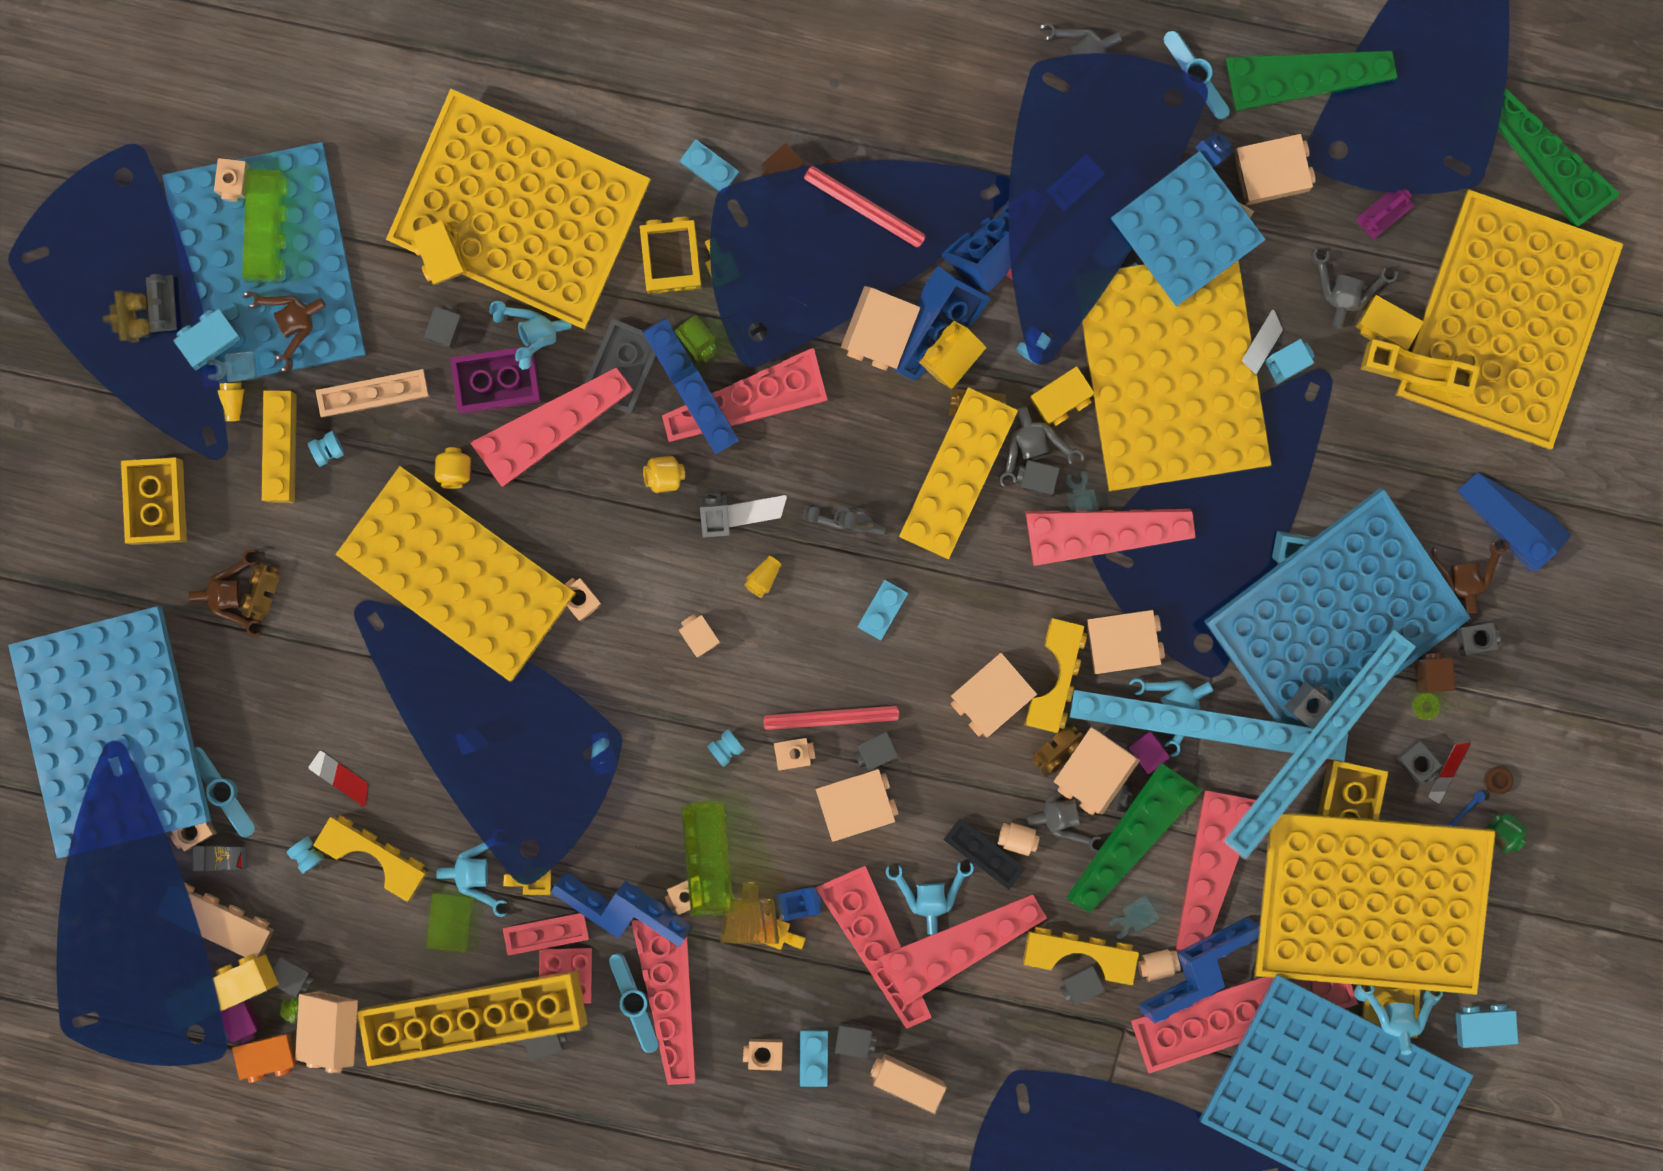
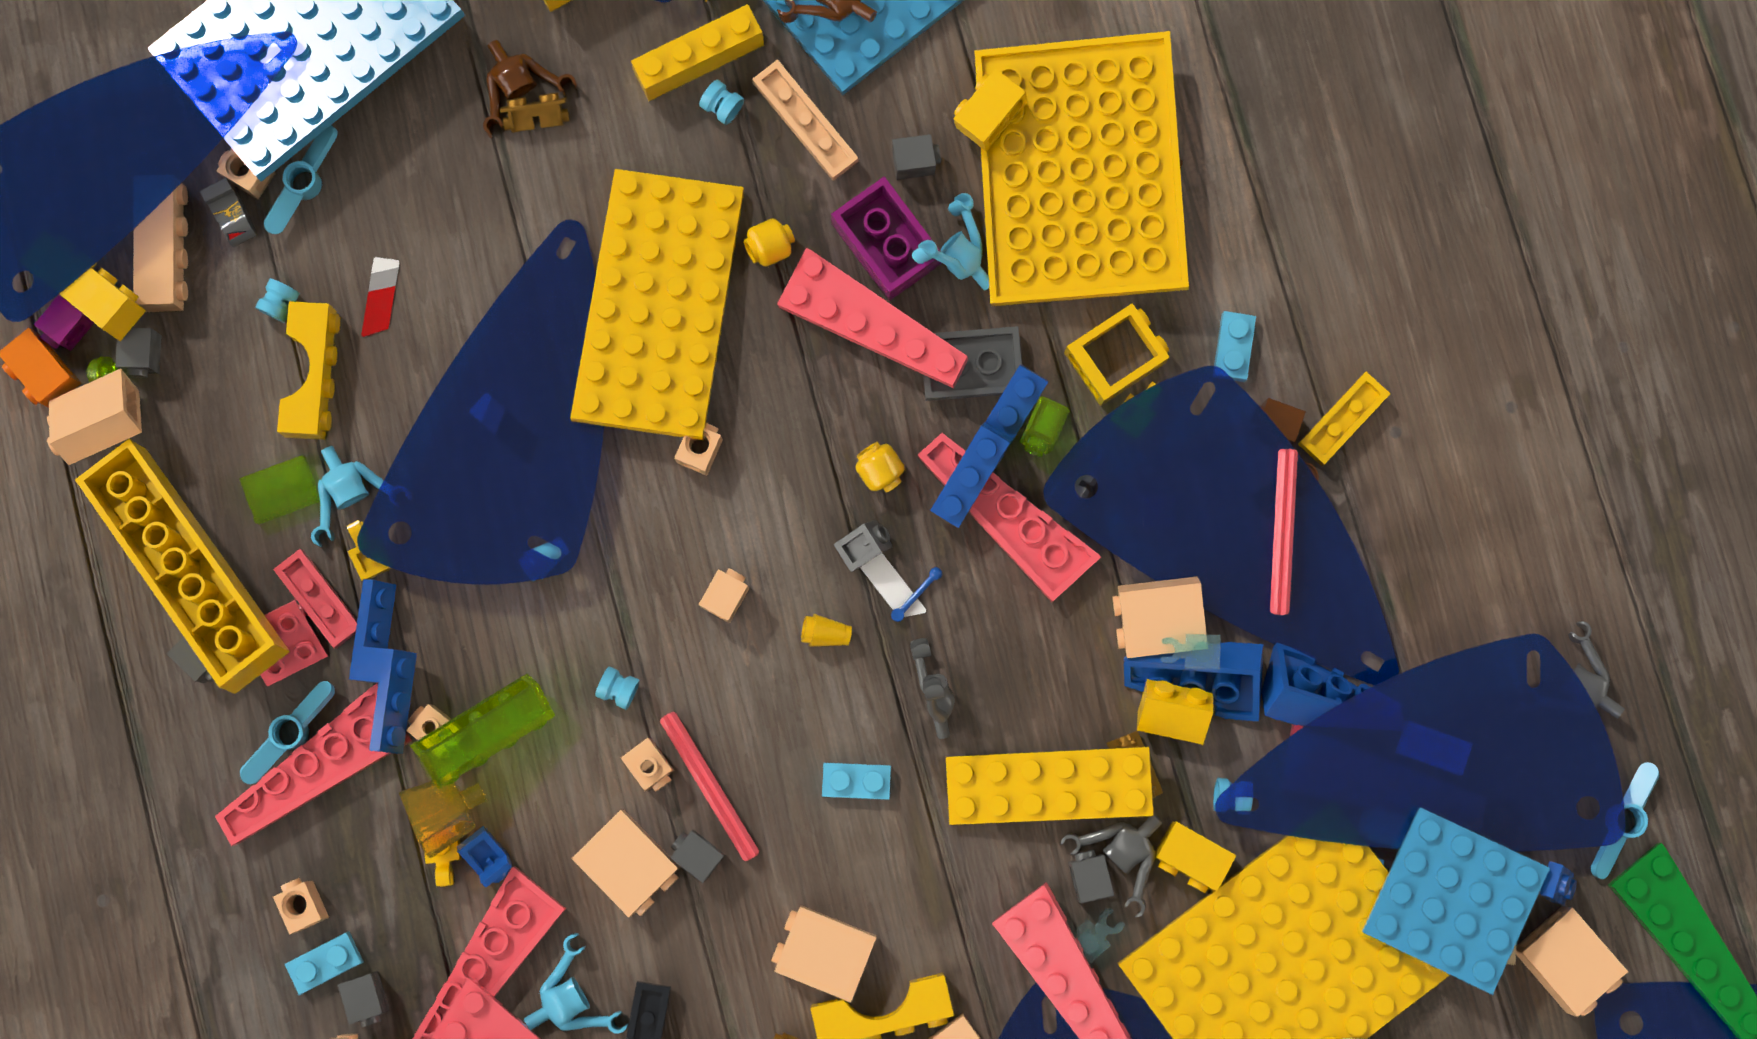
camera: 60 degrees right, 5 degrees down
(777, 517) = (898, 613): none -> blue hinge
(804, 116) = (1344, 418): none -> yellow plate
(919, 315) = (1199, 652): none -> clear light blue plate

